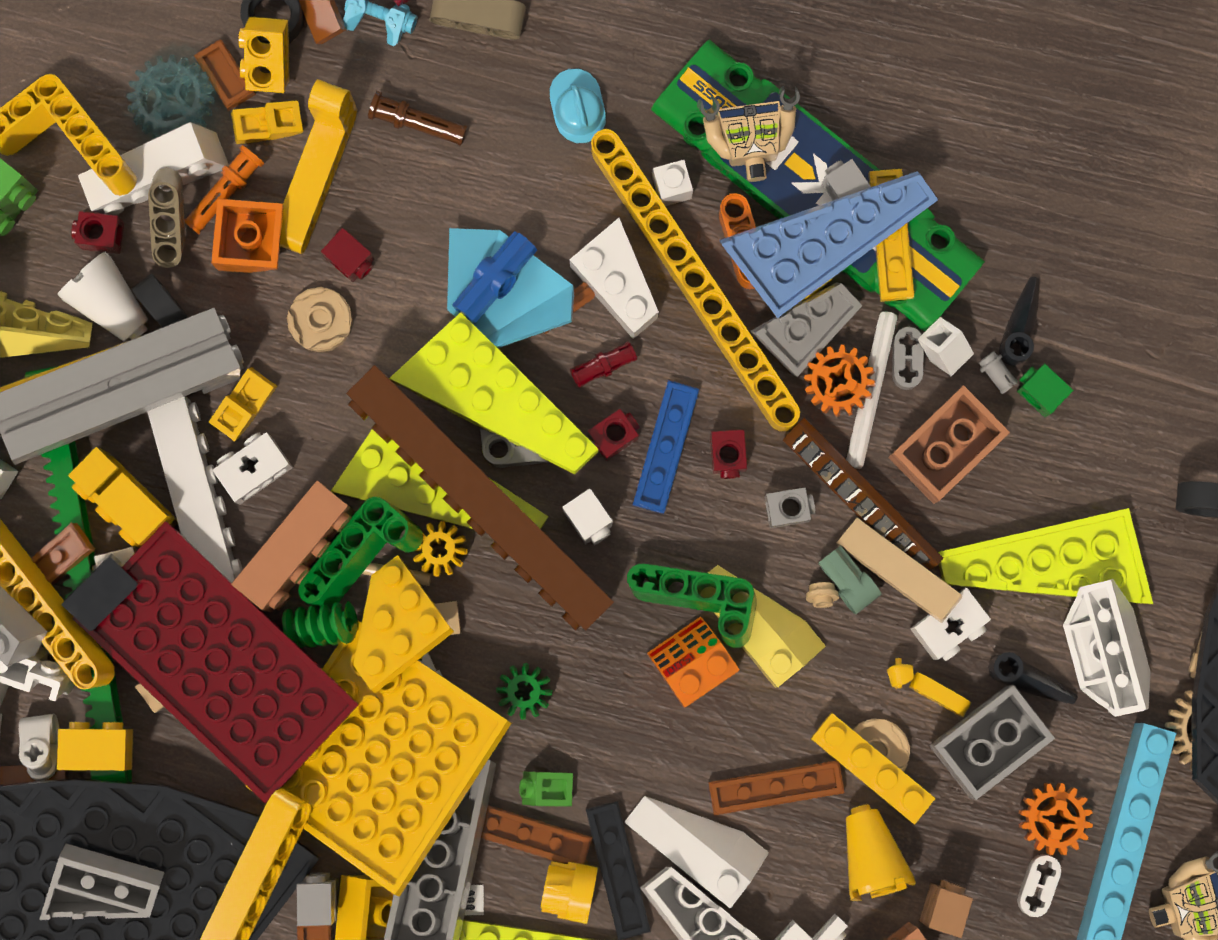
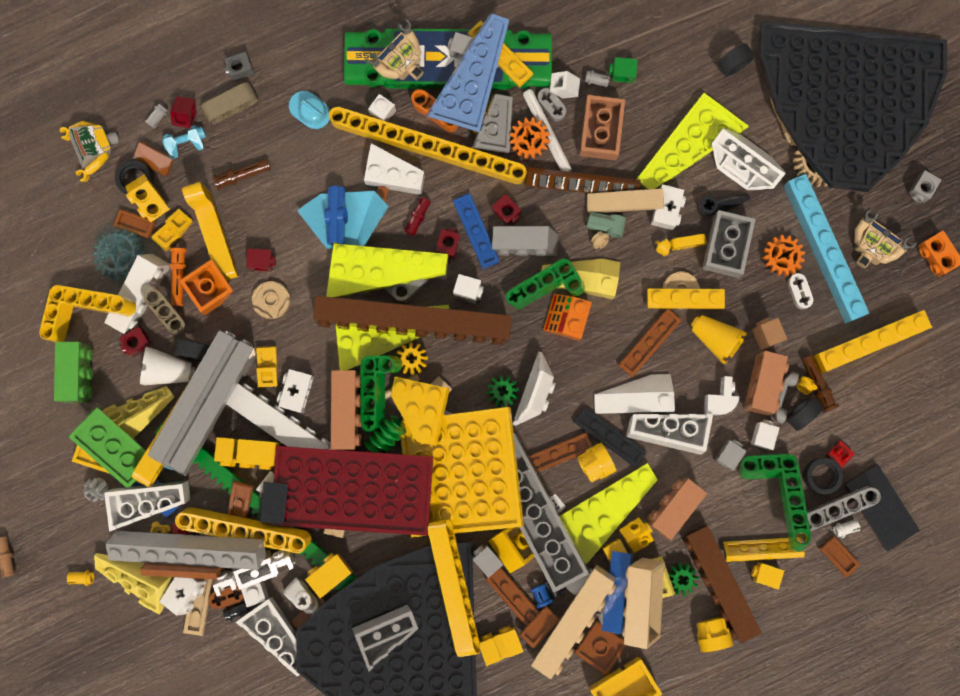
camera: 40 degrees left, 0 degrees up
(546, 788) = (548, 426): bright green bracket -> none
(567, 728) = (535, 392): none -> white wedge
(719, 514) = (525, 240): none -> light grey wedge
(778, 518) = (552, 221): light grey brick -> none
(1021, 325) = (590, 50): black piece -> none

